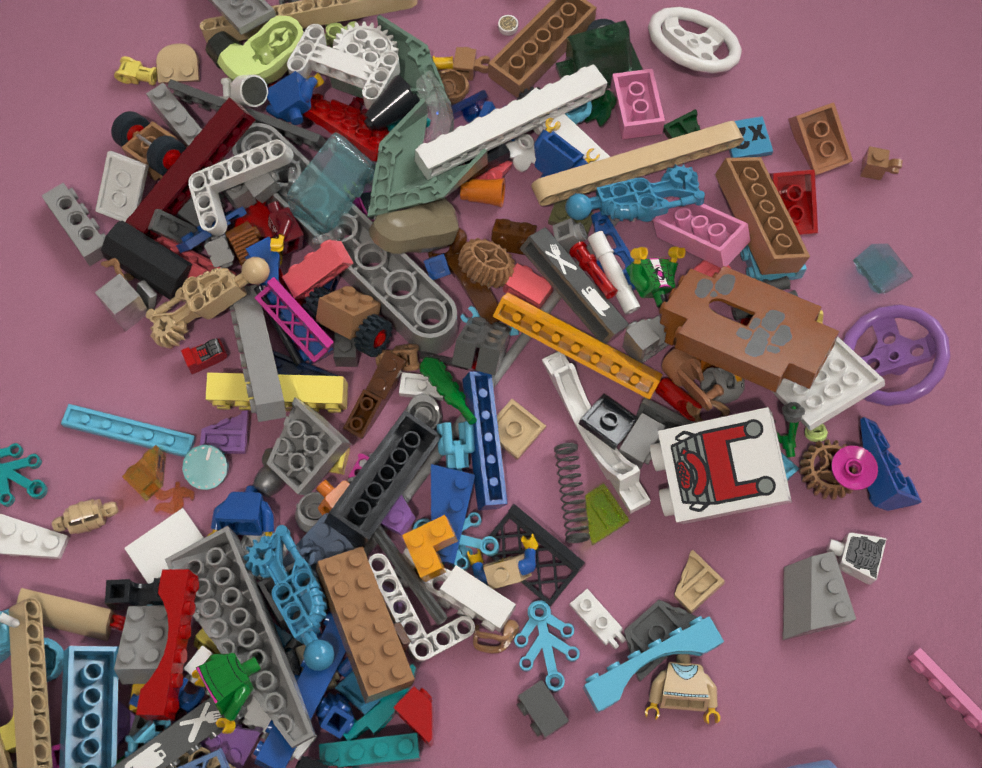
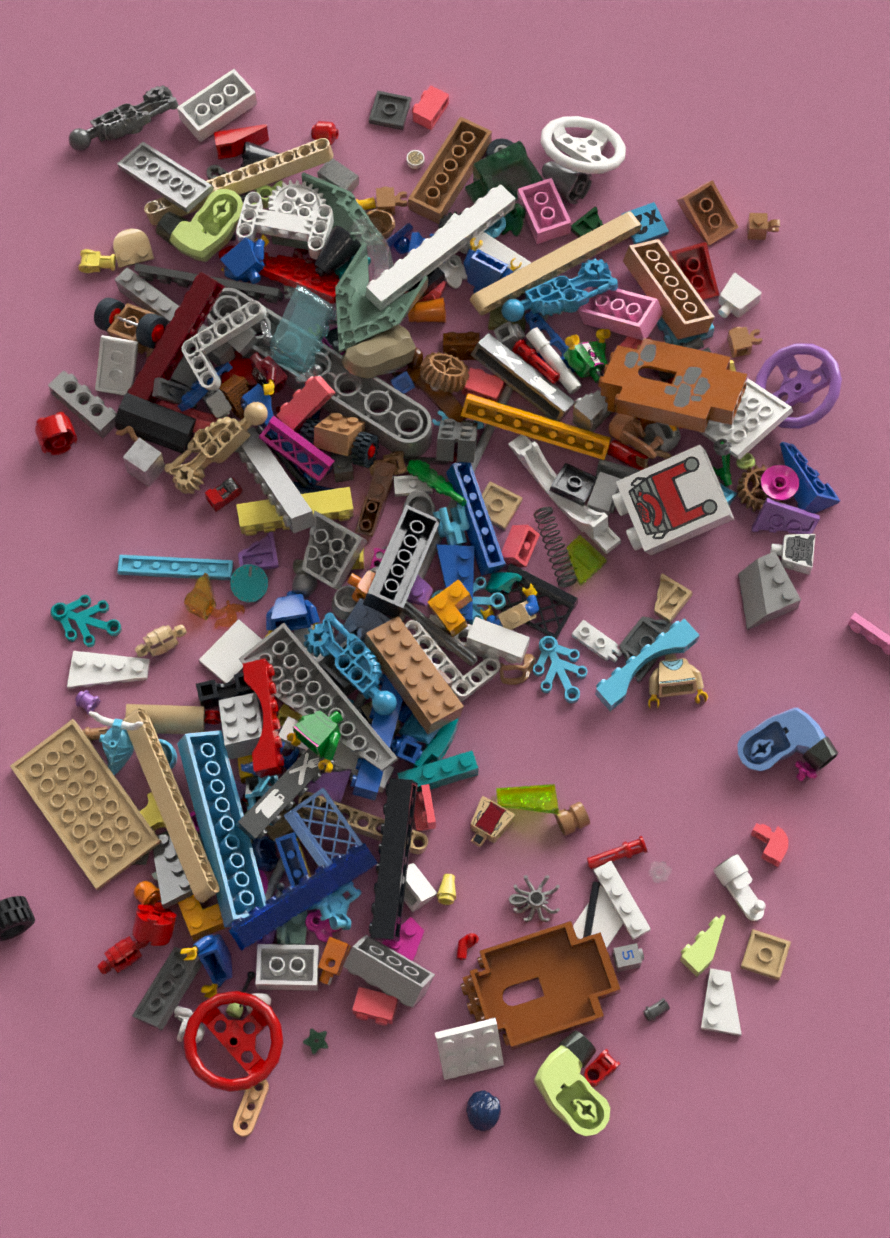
camera: 10 degrees left, 0 degrees up
(34, 251) = (55, 433): none -> red brick
(147, 294) = (164, 450): light grey tile -> none
(246, 90) = (207, 260): piece -> none
(417, 713) = (468, 736): red slope -> none
(420, 26) = (338, 175): none -> light grey brick
(499, 523) = (501, 581): none -> teal slope
(529, 483) = (519, 545): none -> coral brick
(542, 710) = (566, 717): dark grey brick -> none
(671, 78) = (568, 183): none -> dark grey cone
(834, 290) = (741, 342): none -> medium nougat brick
(839, 239) = (738, 297): none -> white torso
(849, 509) = (783, 517): none -> medium lavender wing
(882, 268) = (778, 315): clear light blue slope -> none

